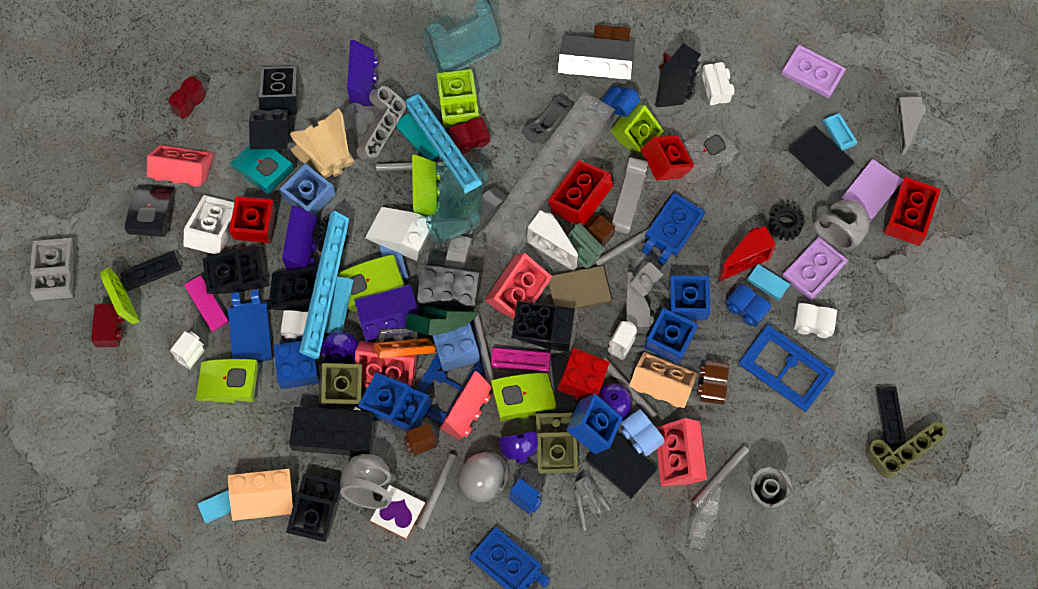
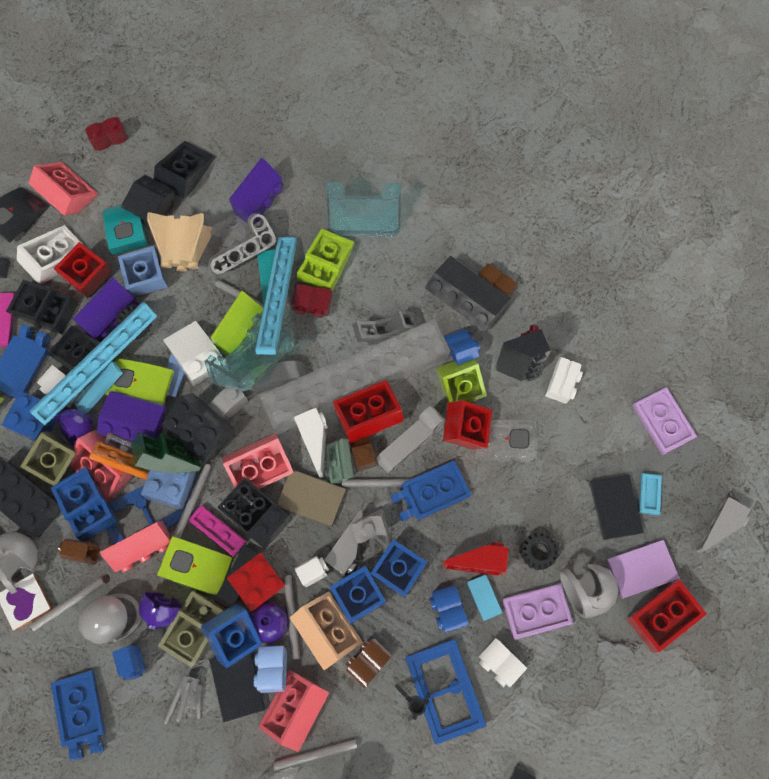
camera: 35 degrees right, 5 degrees up
(774, 383) = (415, 703): none -> black plant

